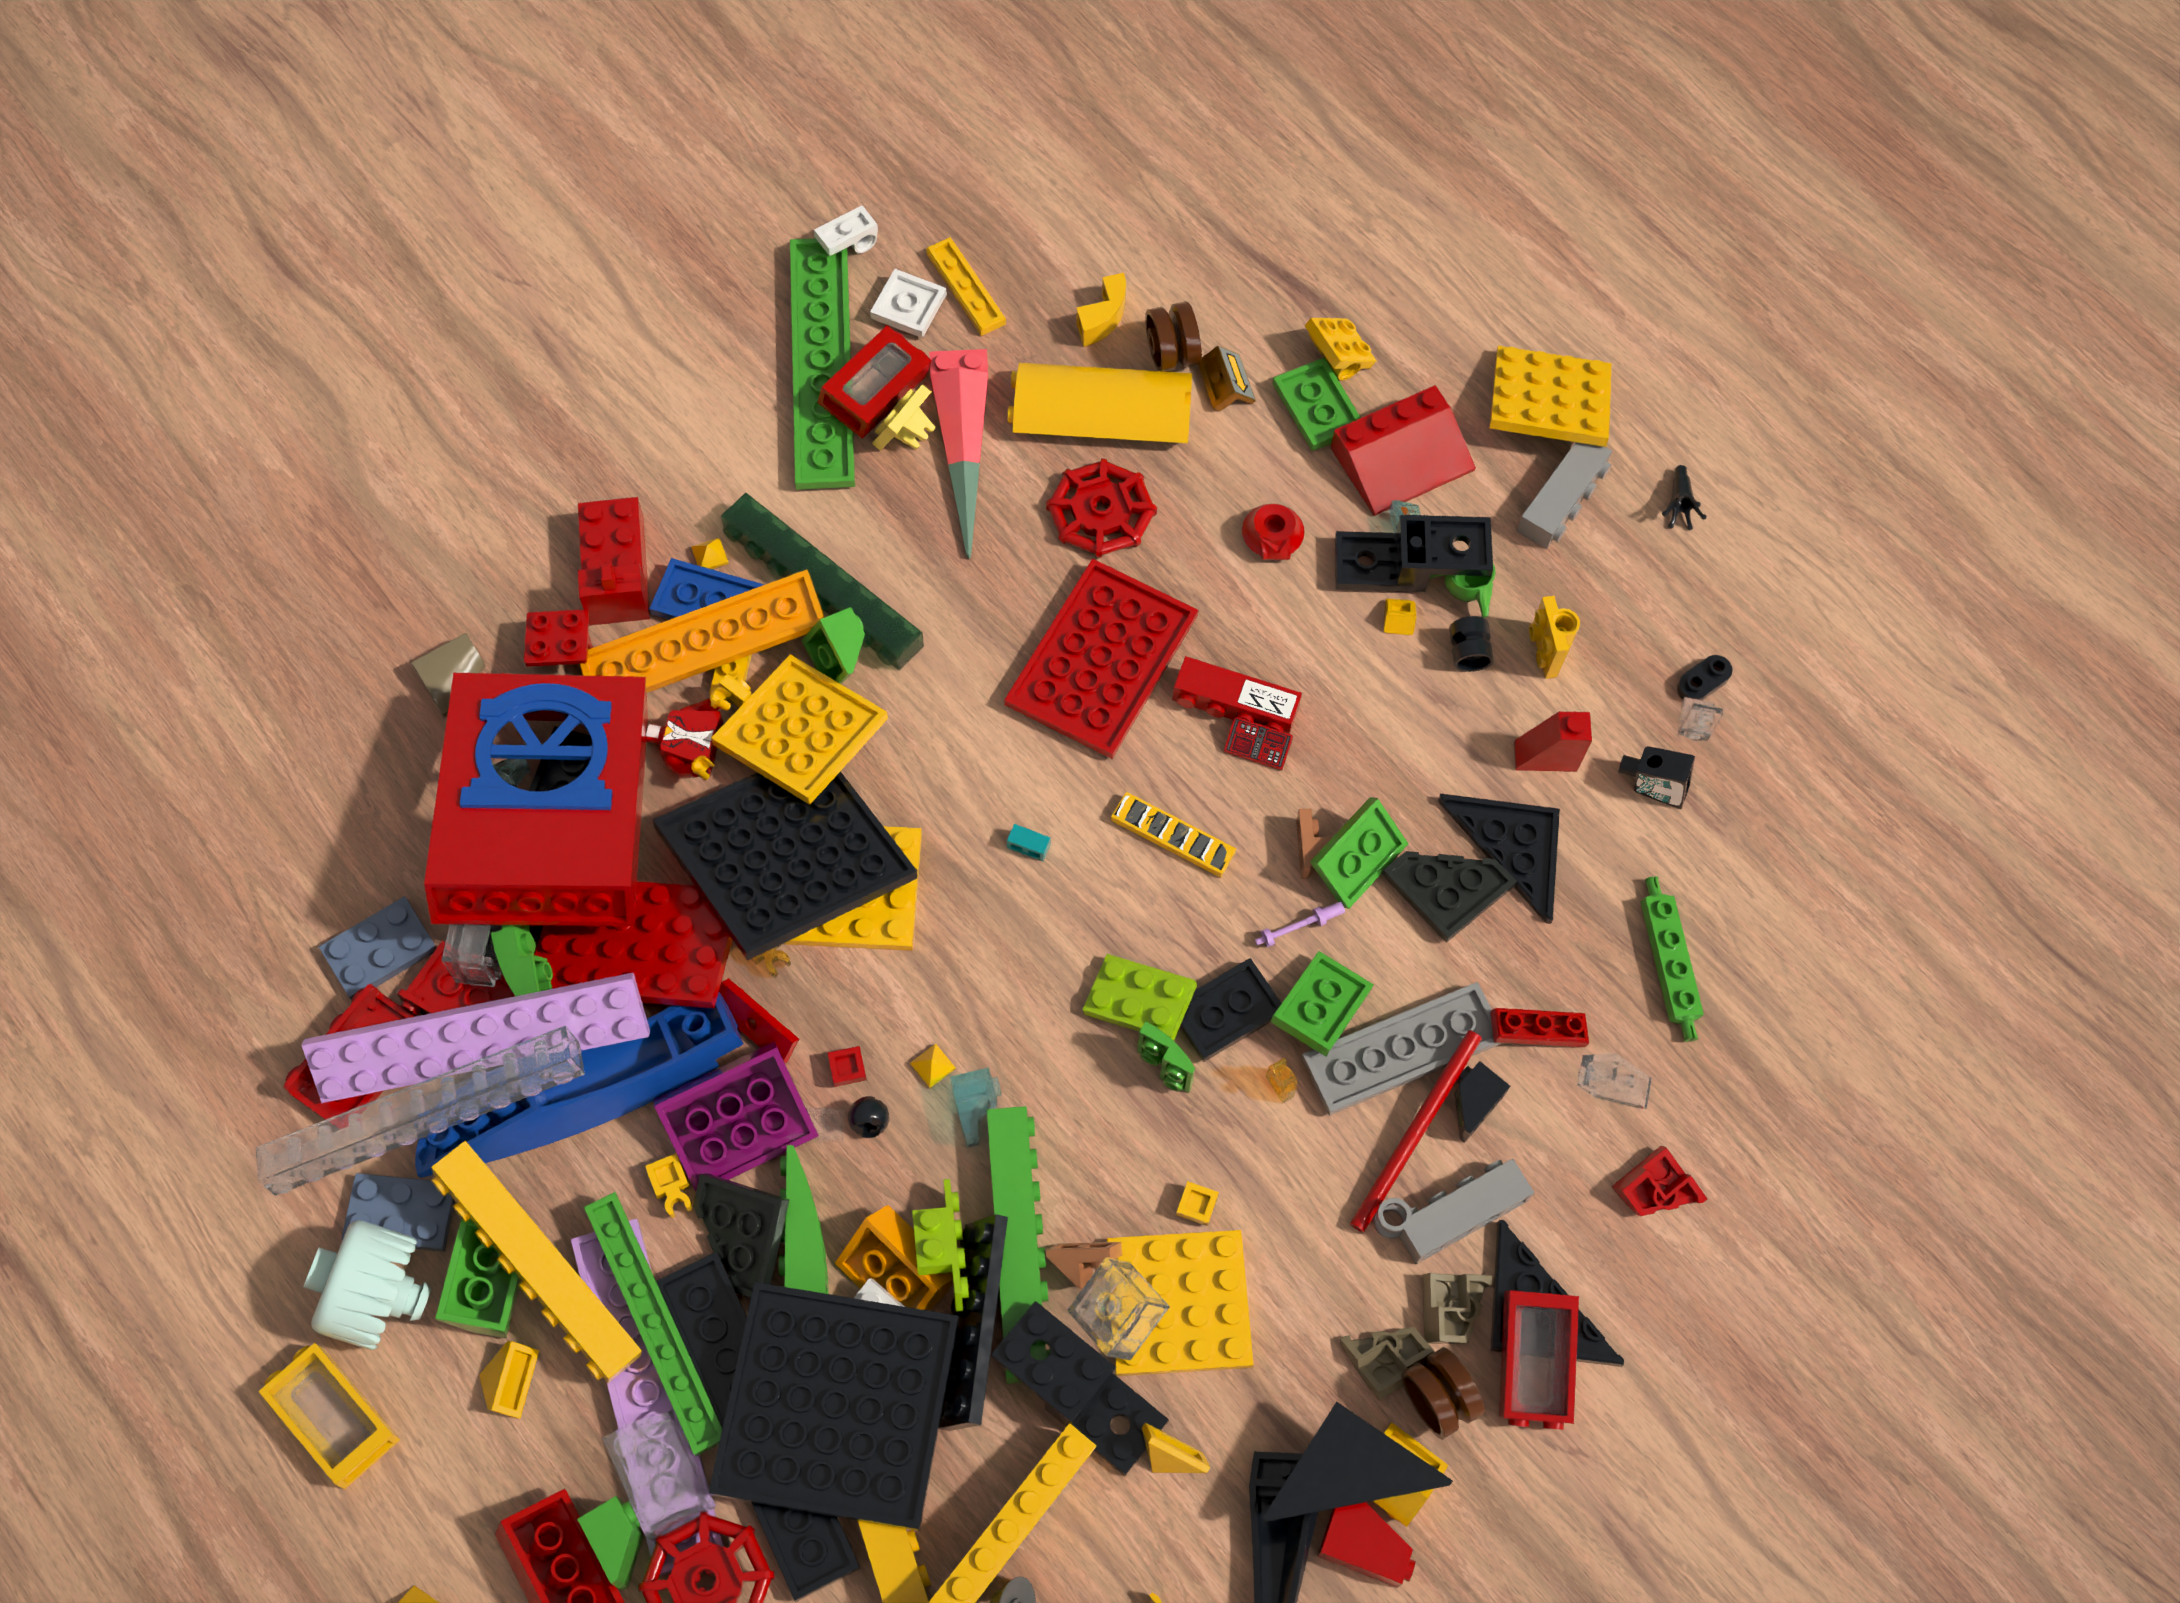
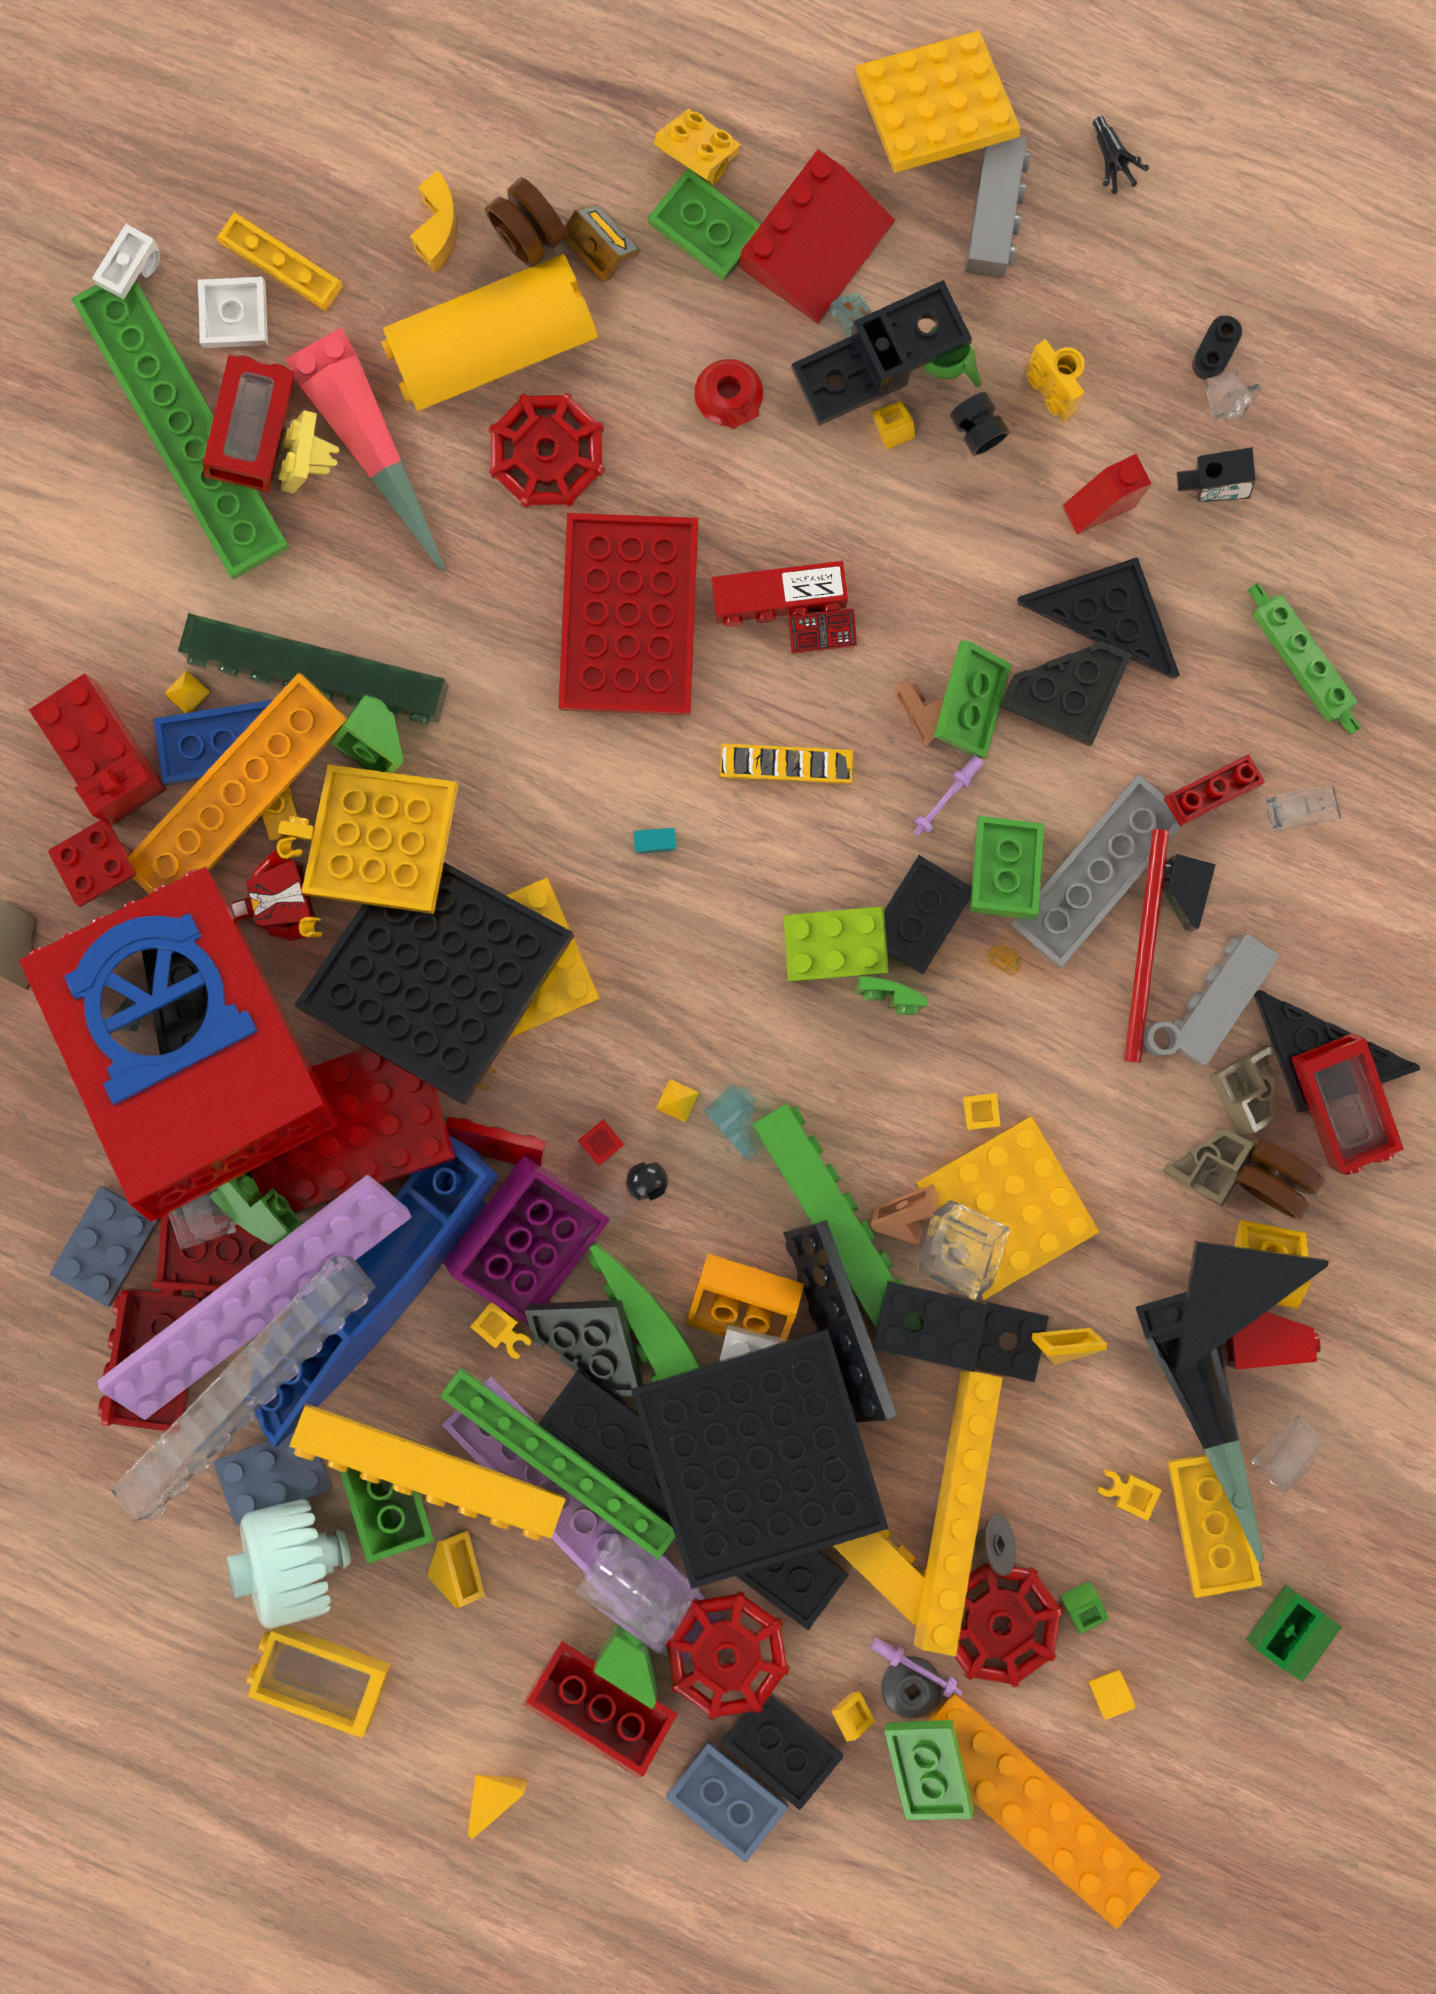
camera: 20 degrees left, 20 degrees up
(936, 1243) = (772, 1271): lime bracket -> none
(1658, 1185) = (1381, 888): red slope -> none

